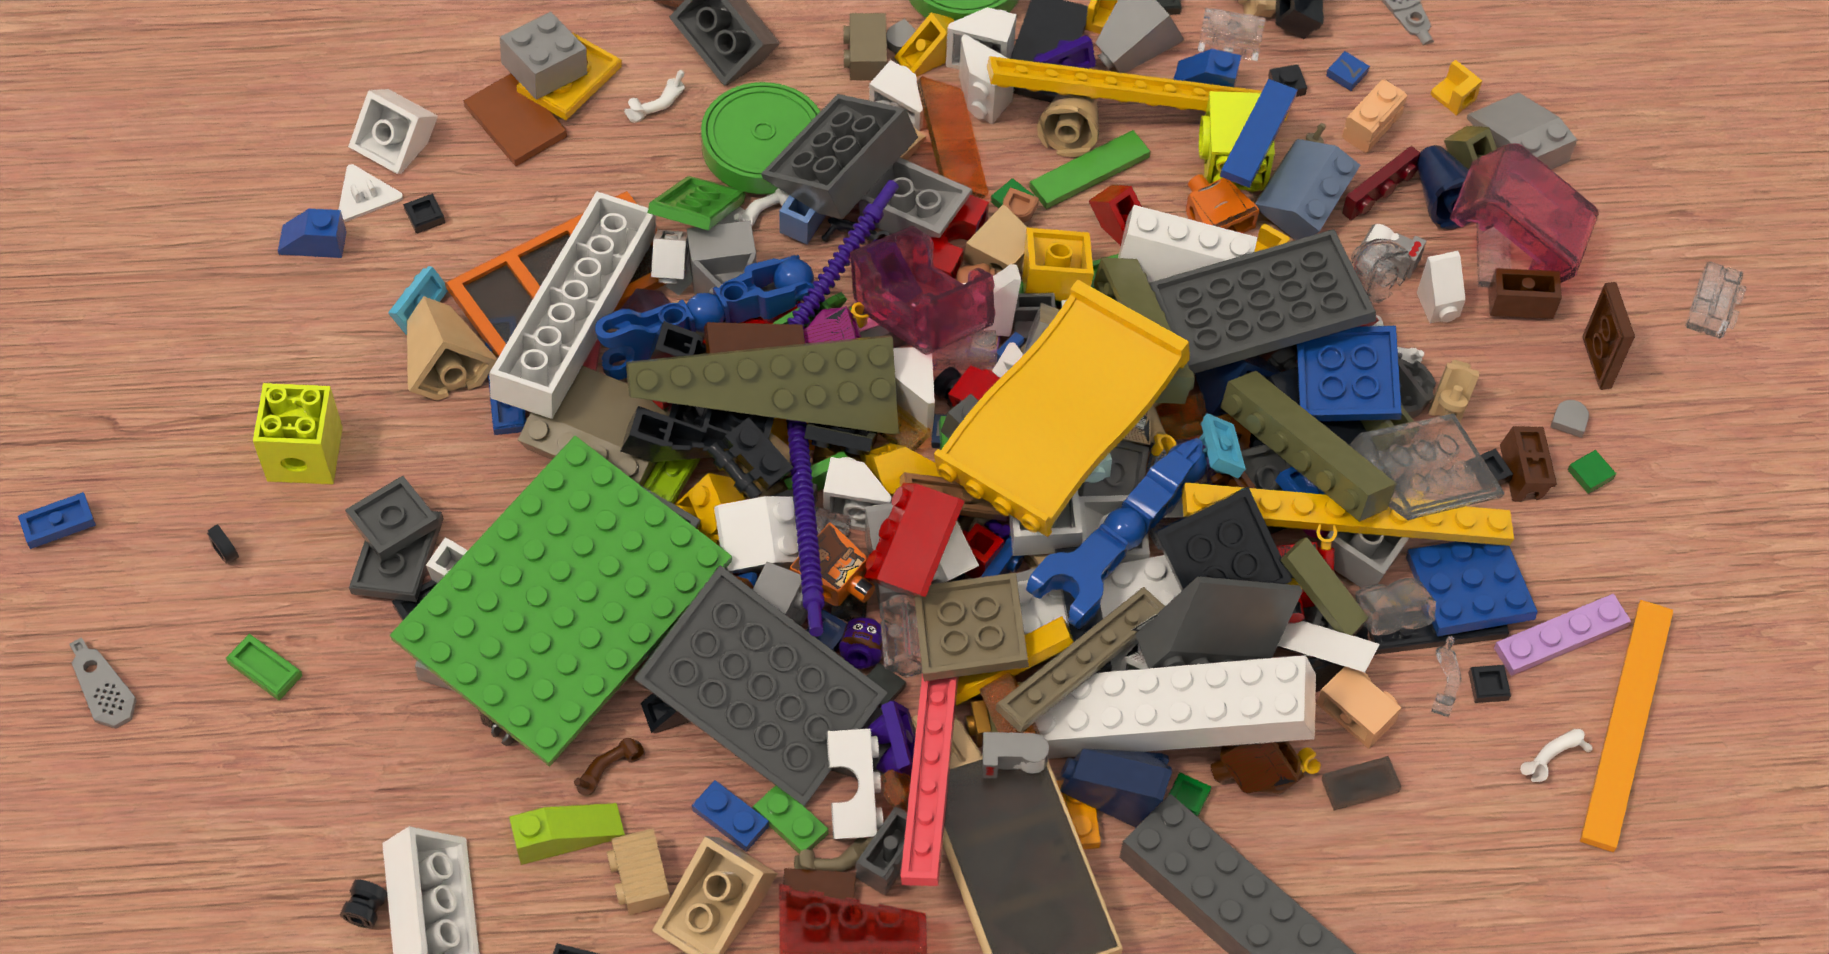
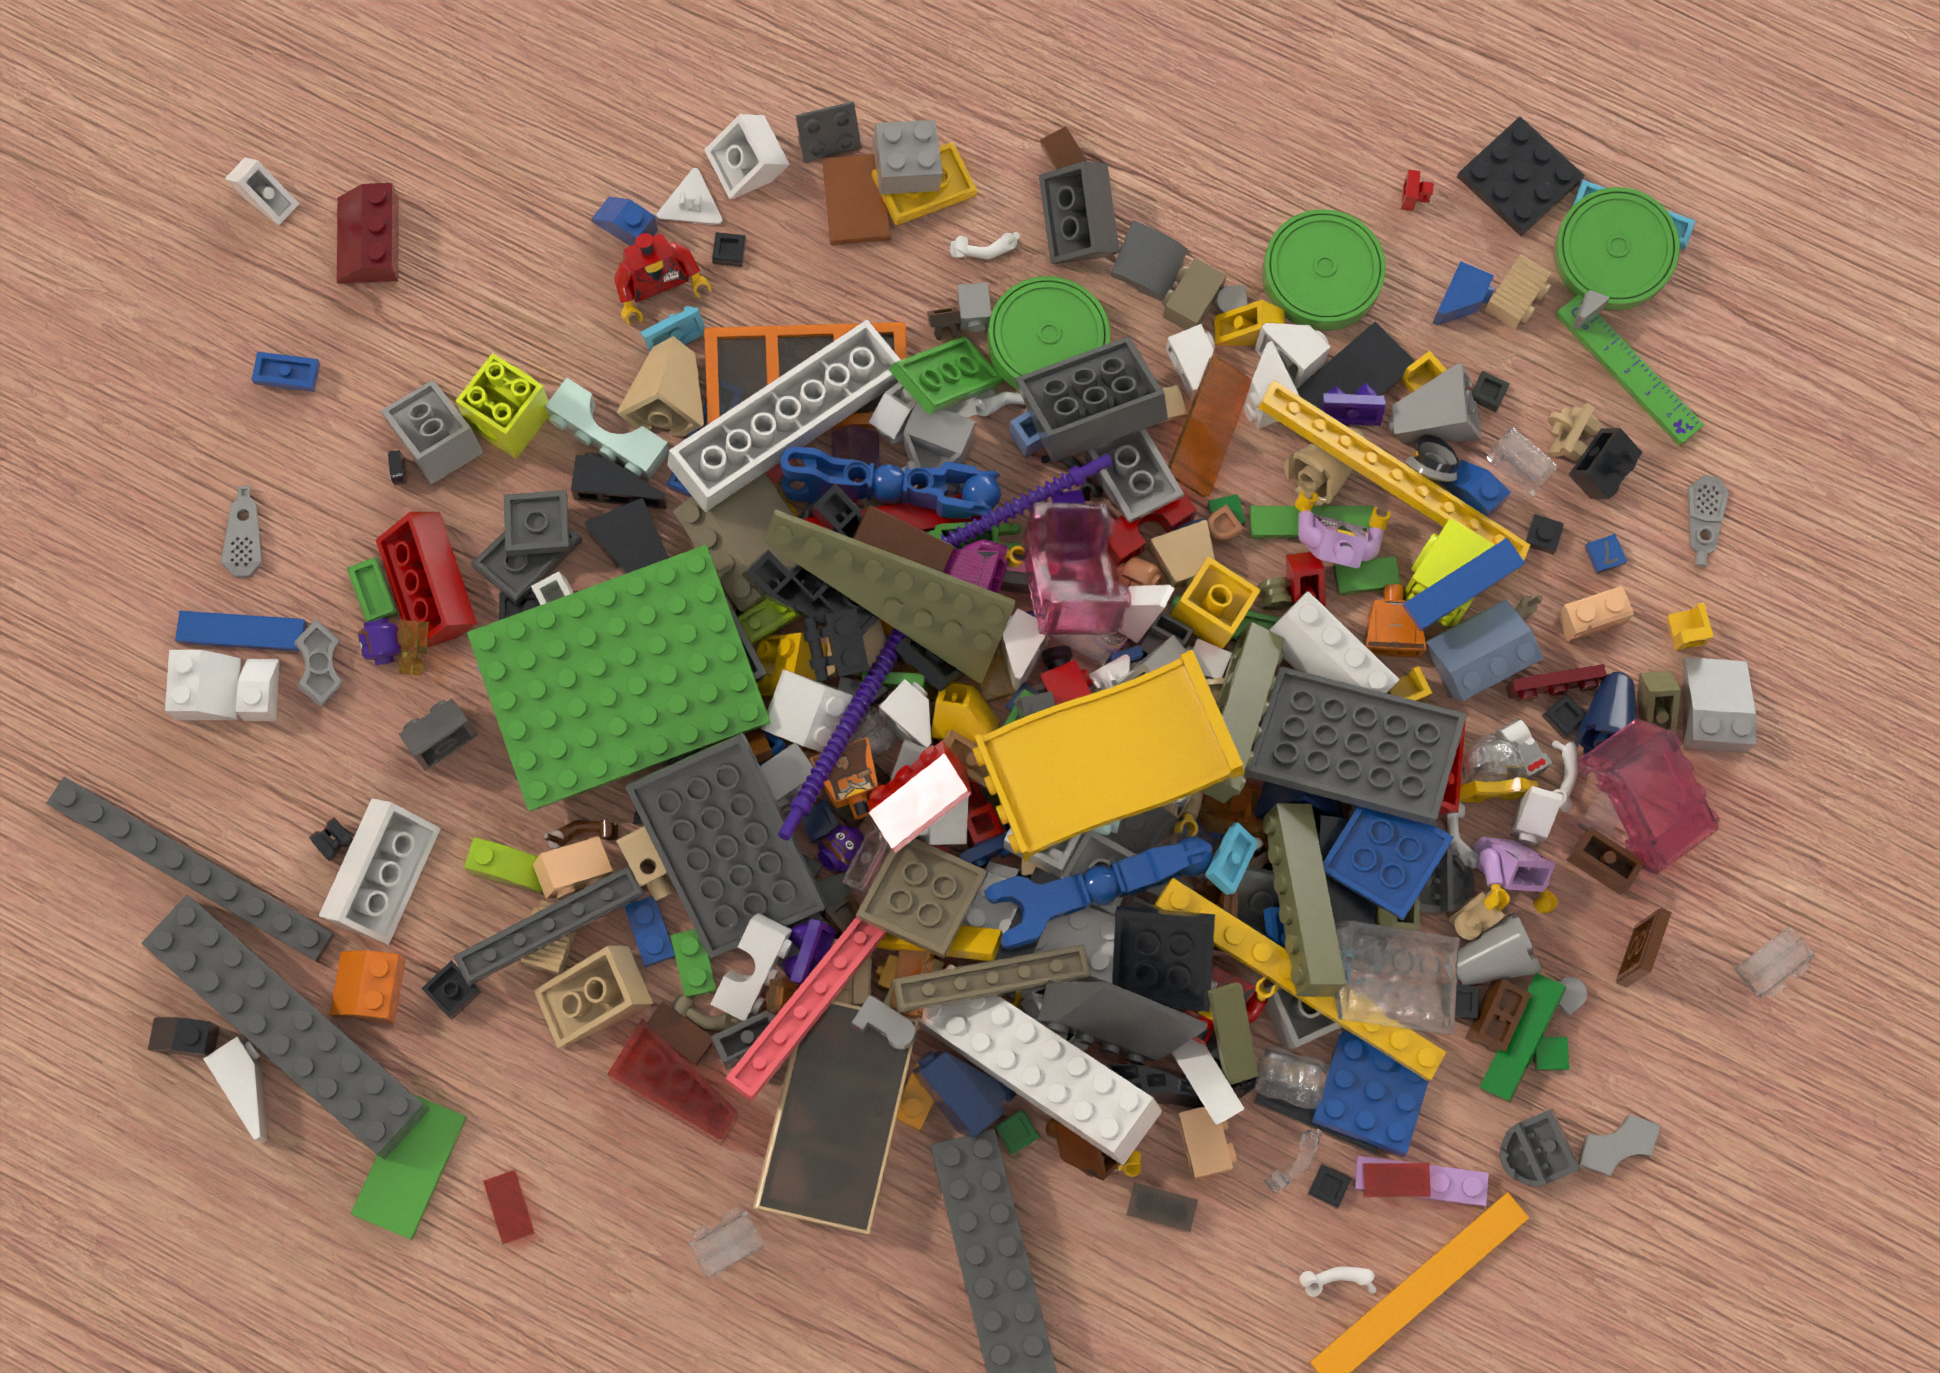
camera: 30 degrees right, 15 degrees up
(66, 365) = (368, 234): none -> dark red slope
(144, 837) = (202, 685): none -> white slope
(151, 771) = (239, 630): none -> blue tile
(205, 813) = (258, 690): none -> white slope
(239, 496) = (432, 431): none -> light grey slope
(259, 767) = (319, 675): none -> light grey tile
(301, 702) = (379, 641): none -> dark purple head
(312, 627) = (426, 576): none -> red slope
(333, 686) = (413, 642): none -> clear yellow plate
(366, 256) = (653, 268): none -> red torso
(412, 750) = (437, 733): none -> dark grey slope
(439, 453) = (606, 482): none -> black slope
(447, 414) = (638, 450): none -> light aqua arch
(456, 72) = (828, 131): none -> dark grey hinge
(483, 487) = (628, 537): none -> black slope
(622, 795) = (572, 868): none -> light nougat brick
(633, 855) = (548, 925): none -> dark grey tile
(660, 170) = (944, 318): none -> dark brown tile
(680, 147) = (974, 306): none -> light grey brick
(687, 750) = (638, 849): none -> tan torso
(809, 40) = (1149, 260): none -> dark grey slope
(906, 692) = (842, 913): none -> dark brown tile
(1102, 237) = (1275, 593): none -> olive wheel
(1121, 164) = (1338, 540): none -> lavender torso
(1161, 64) = (1434, 459): none -> piece
(1165, 186) = (1369, 577): none -> bright green tile
(1400, 286) = (1508, 790): none -> yellow tile
(1406, 208) = (1564, 716): none -> black tile
(1436, 236) = (1570, 759): none -> white piece
(1456, 337) = (1514, 868): none -> lavender torso
(1496, 407) = (1498, 954): none -> light grey cone
(1544, 639) = (1396, 1180): none -> clear red tile
(1567, 496) = (1510, 1066): none -> green tile
(1640, 552) = (1537, 1151): none -> dark grey slope
(1706, 501) = (1632, 1138): none -> light grey tile

